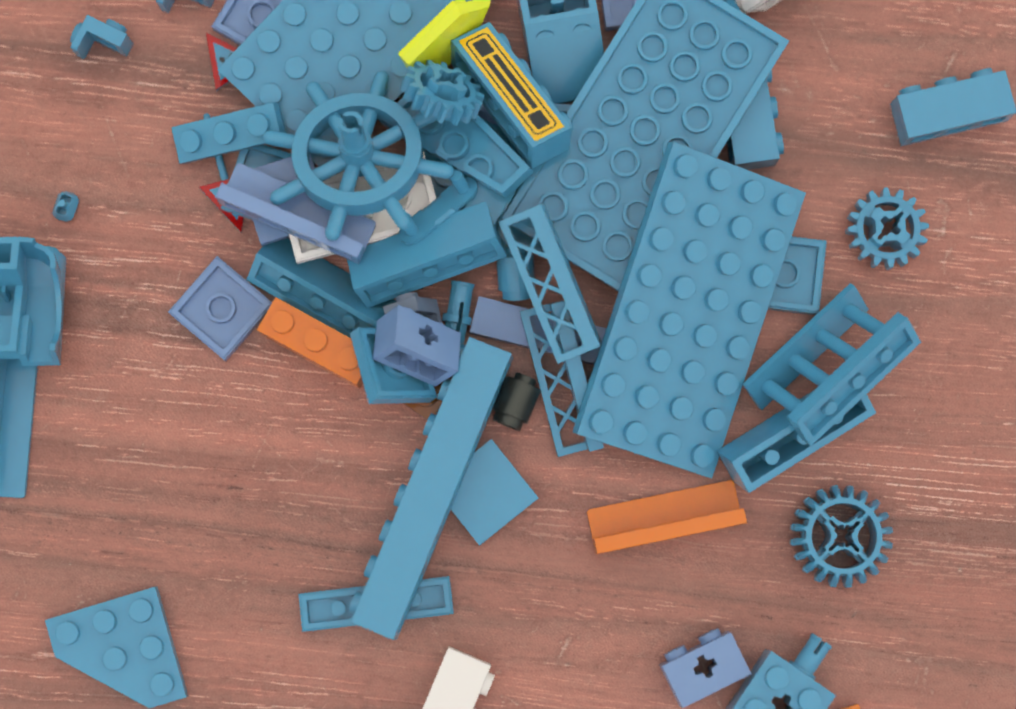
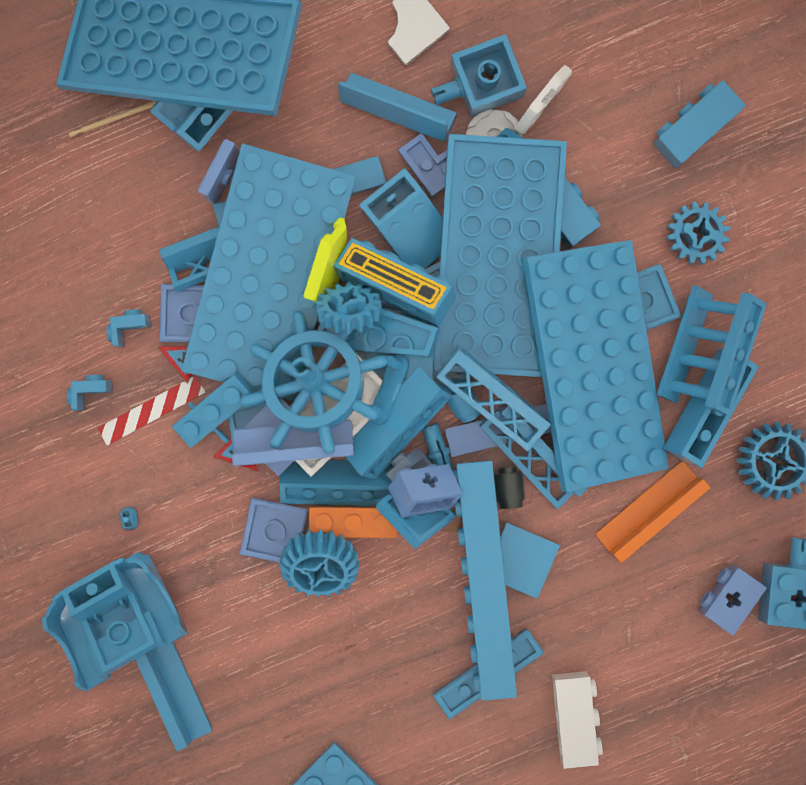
camera: 25 degrees left, 5 degrees up
(159, 99) = (151, 410): none -> sticker
(259, 387) = (319, 563): none -> dark azure gear

